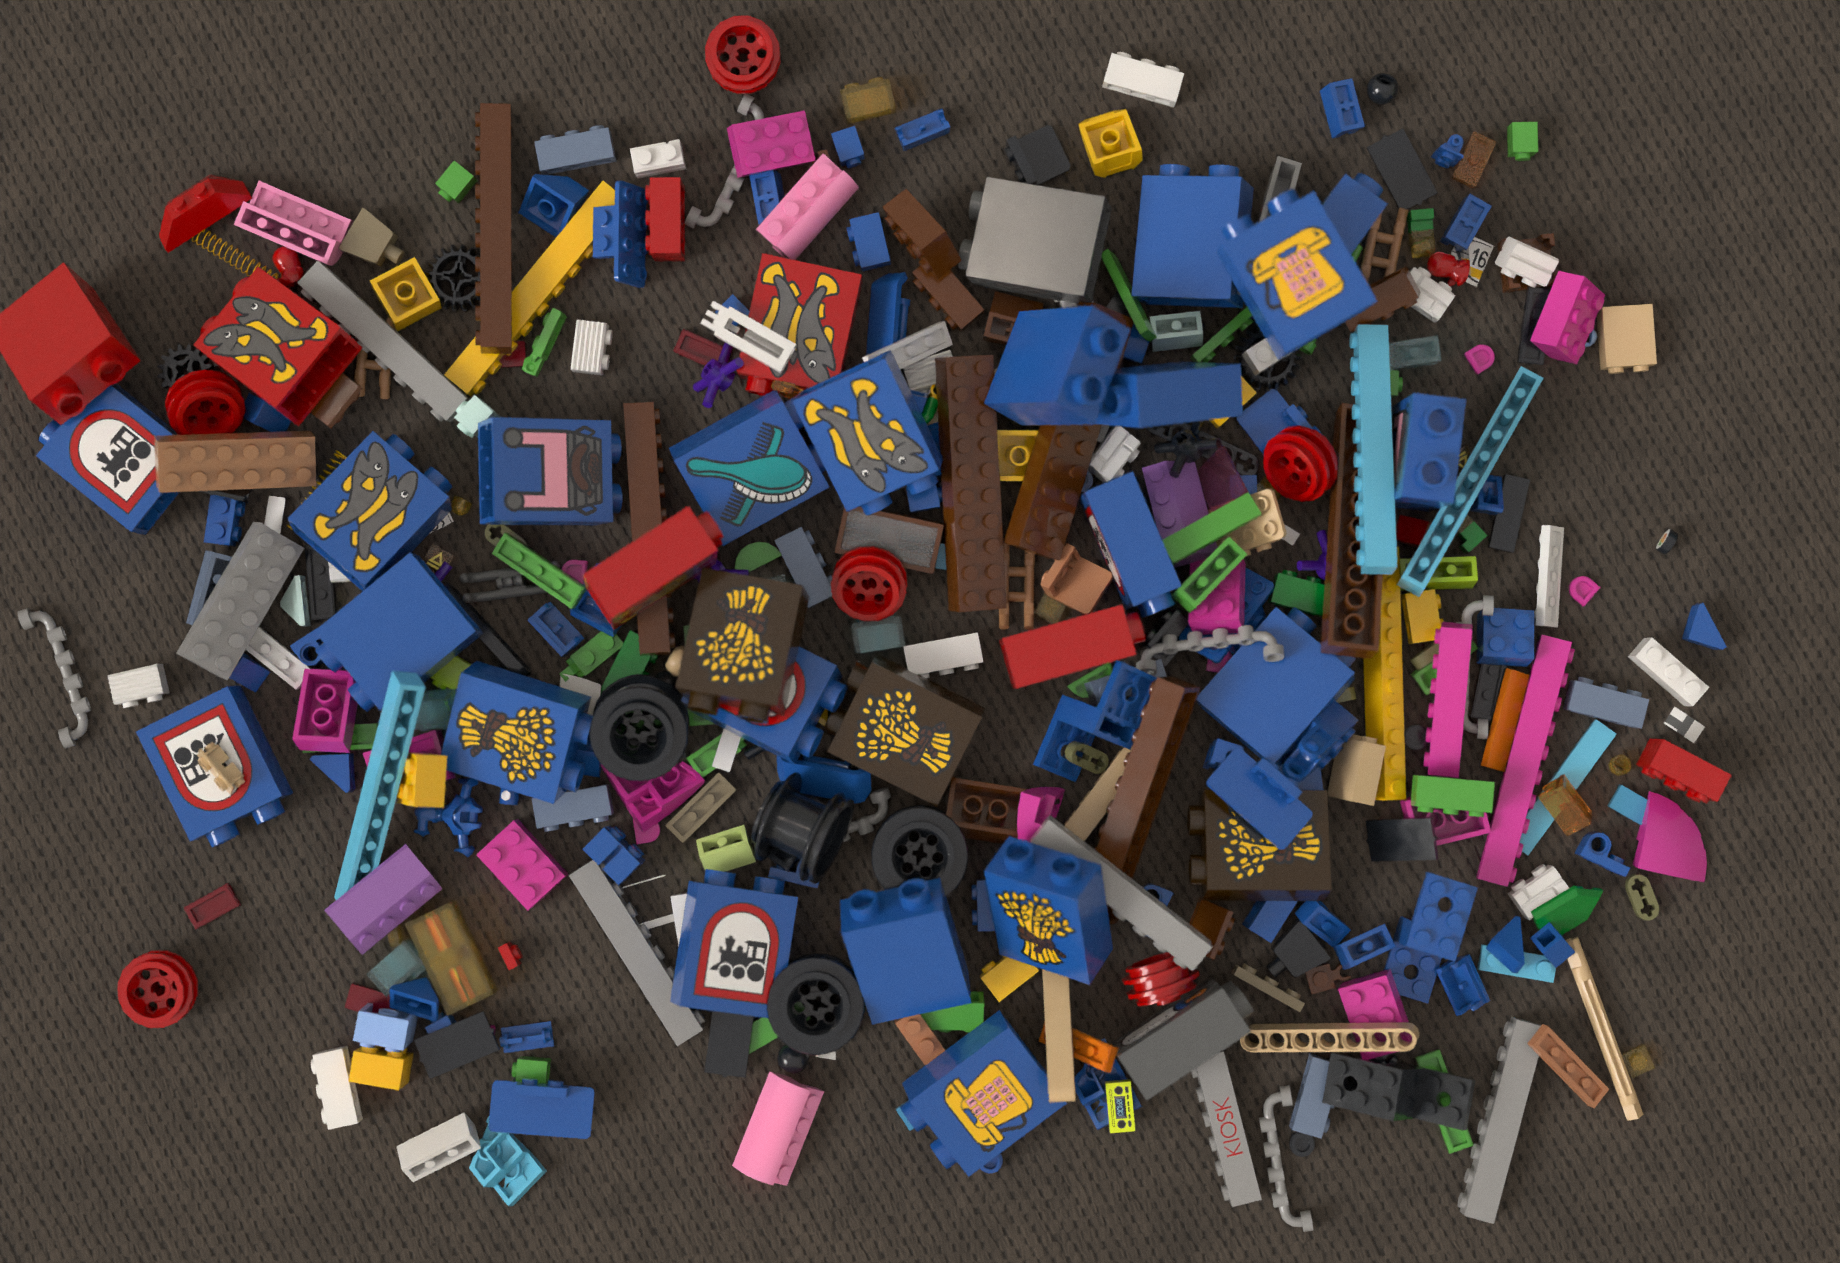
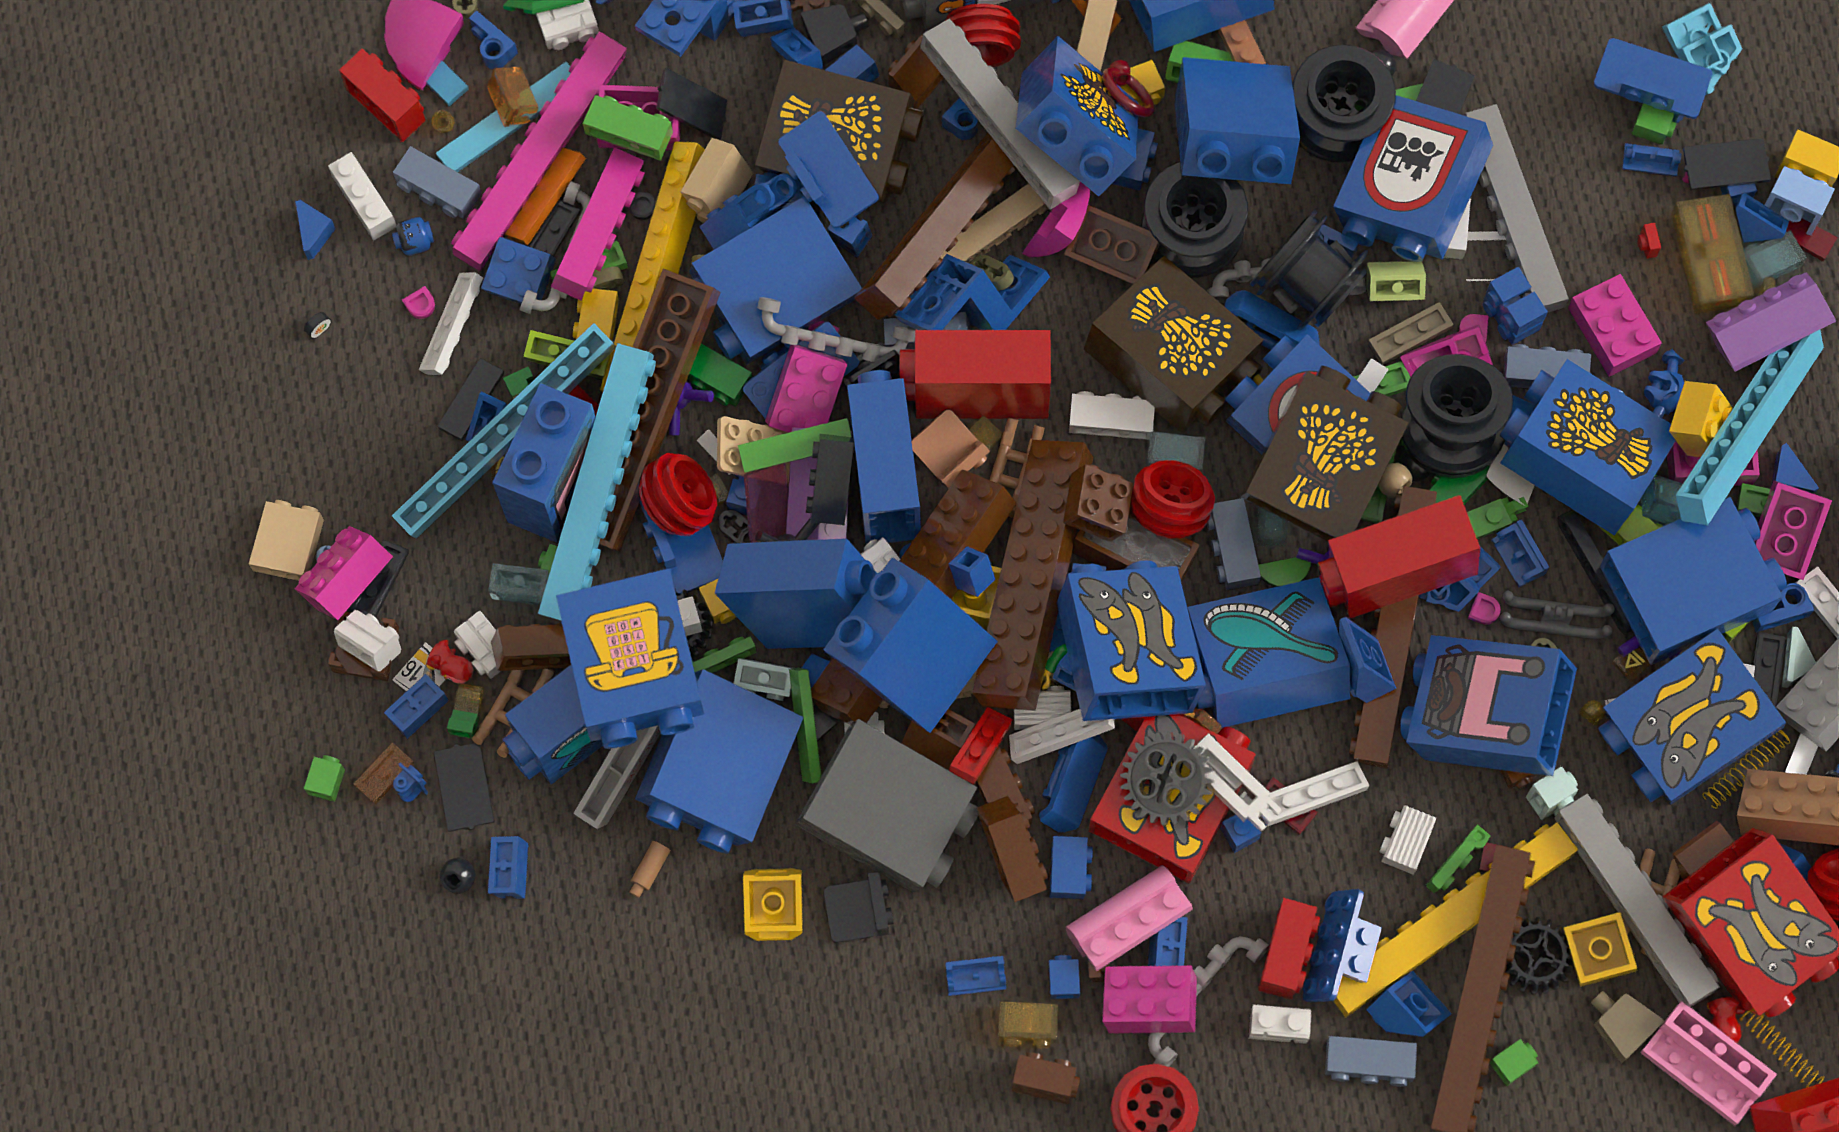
camera: 160 degrees left, 15 degrees down
(438, 1147) = (1769, 75): white brick -> none
(539, 570) = (1520, 609): bright green tile -> none
(661, 478) = (1368, 667): none -> blue slope
(679, 364) = (1318, 791): none -> white plate
(717, 375) = (1276, 762): dark purple bar -> none
(828, 324) = (1191, 787): none -> dark grey gear
(839, 53) = (1045, 1079): none -> reddish brown brick
(931, 557) = (1098, 502): none -> reddish brown brick
(973, 315) = (980, 745): none -> red plate
(1023, 976) = (1120, 74): none -> dark red piece
(1024, 463) = (972, 571): none -> blue brick
(1143, 79) = (715, 961): white brick -> none
(1171, 504) = (830, 479): none -> black brick
(1209, 574) = (810, 399): bright green brick -> none
(1223, 142) = (649, 868): none -> medium nougat cylinder
(1480, 358) = (446, 565): dark pink tile -> none
(1610, 649) = (413, 236): none -> blue head
(1684, 724) = (362, 145): sticker -> none

